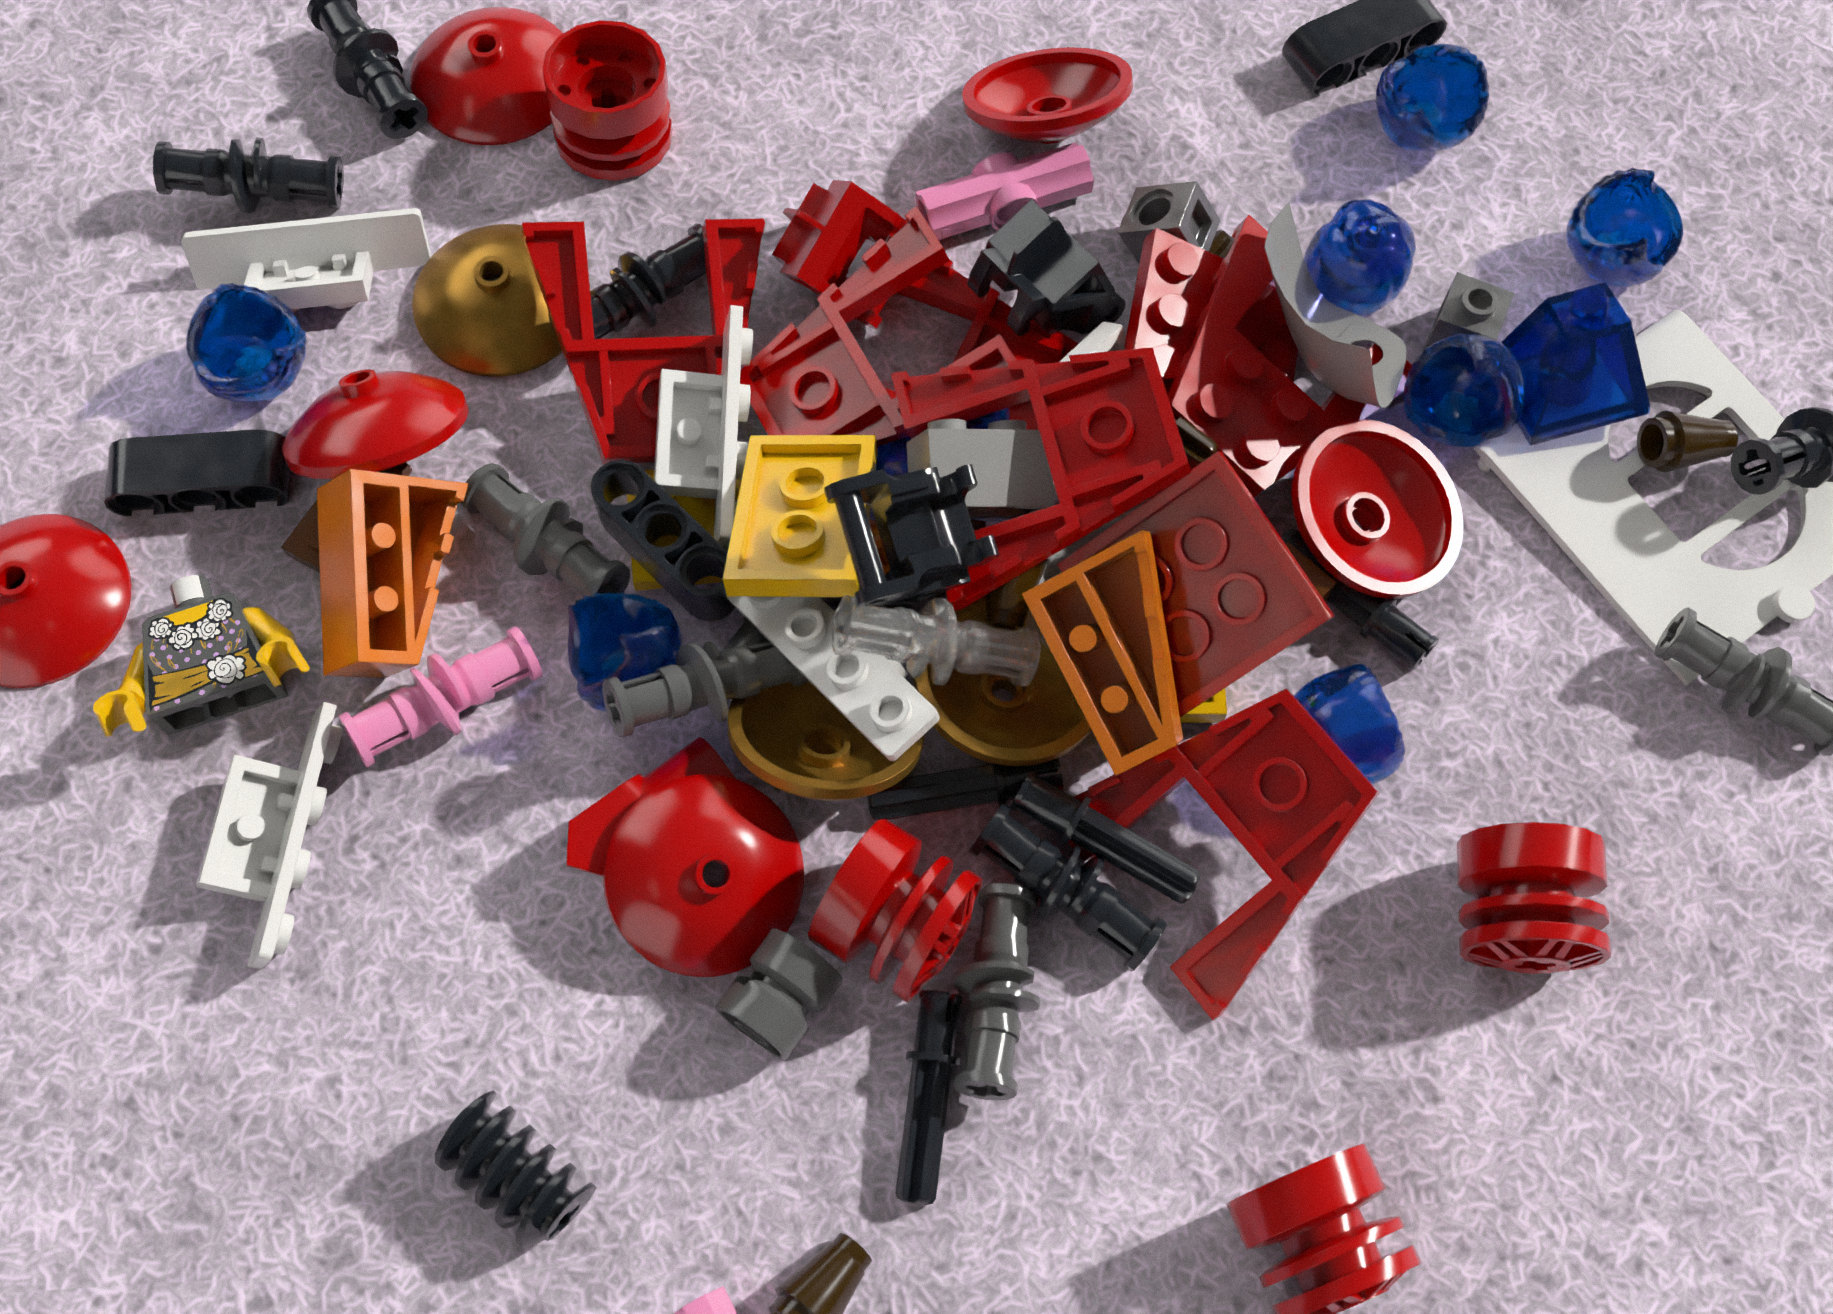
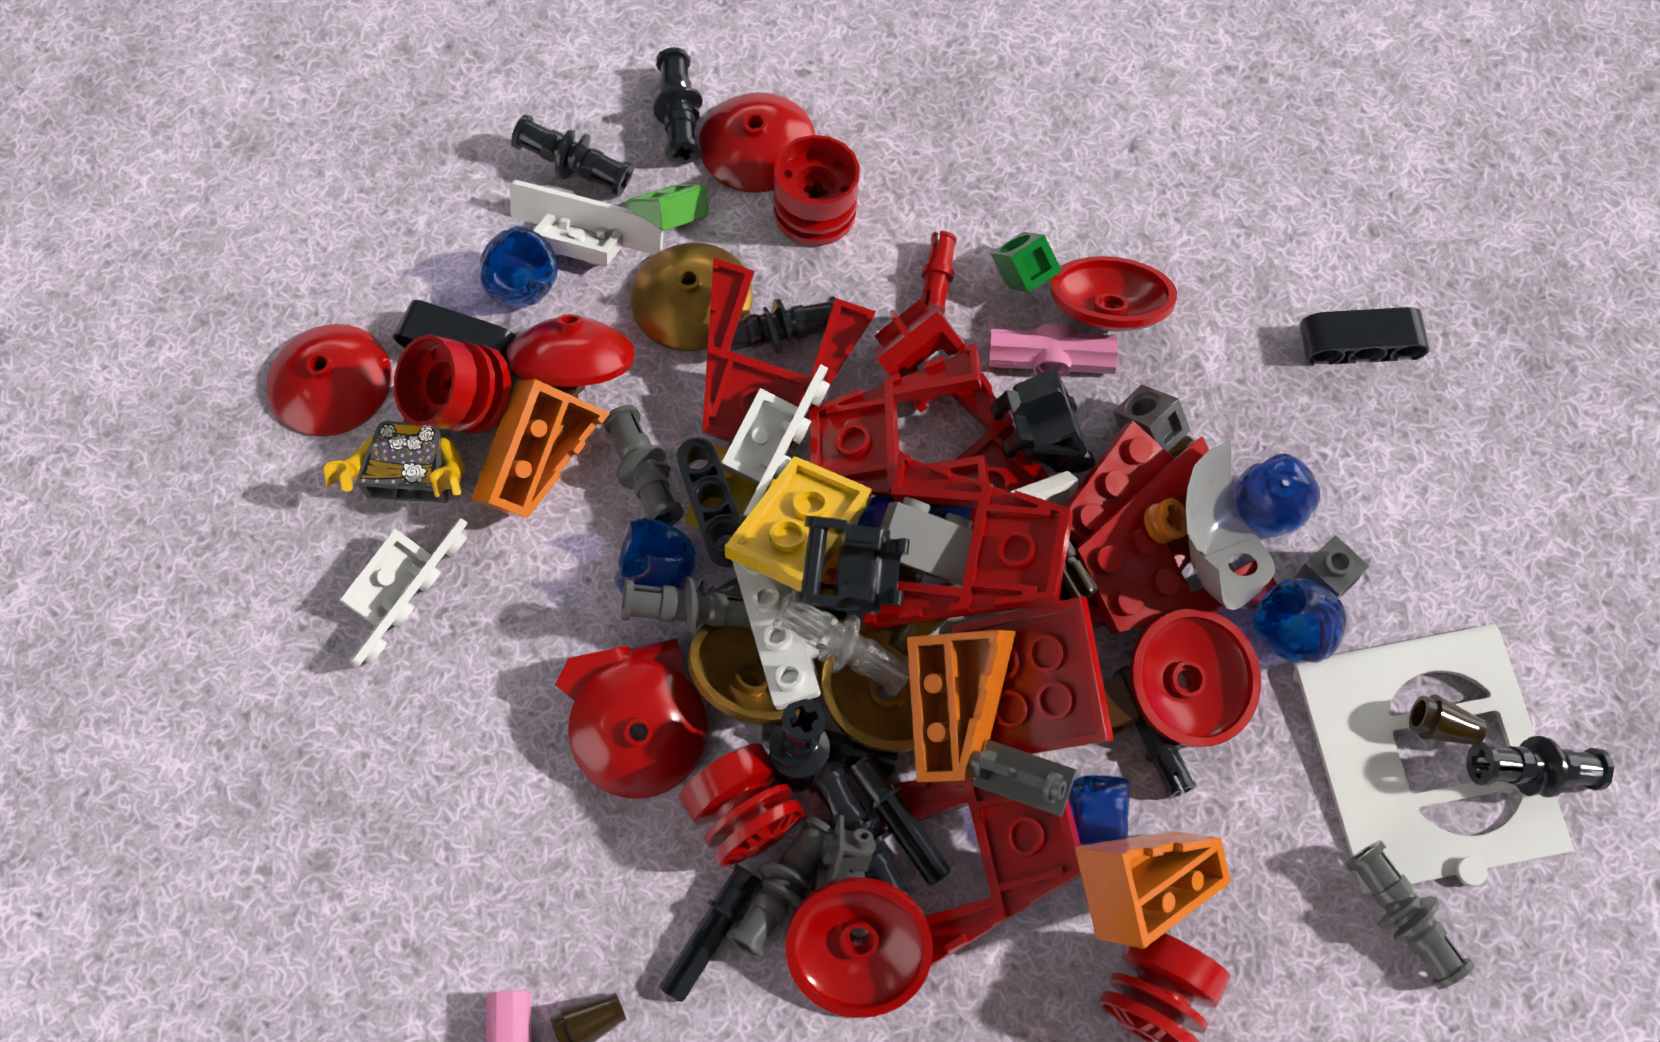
camera: 30 degrees right, 0 degrees up
(228, 526) = (451, 385): none -> red wheel
(421, 189) = (671, 205): none -> bright green slope
(441, 696) = (532, 544): bright pink piece -> none
(509, 1173) = (435, 860): black piece -> none
(779, 993) = (647, 825): dark grey wheel -> none
(811, 146) = (938, 270): none -> red pin
(921, 93) = (1026, 261): none -> green brick
(940, 794) = (799, 745): none -> black piece
(1062, 951) = (844, 854): none -> dark grey hinge
(1158, 1048) = (852, 972): none -> red dish
(1247, 709) = (1022, 777): none -> dark grey hinge
(1260, 328) = (1166, 521): none -> orange bush
(1433, 97) = (1402, 406): clear blue piece -> none
(1457, 776) = (1149, 883): none -> orange wedge
(1578, 365) = (1390, 635): clear blue slope -> none
(1627, 209) = (1481, 536): clear blue piece -> none

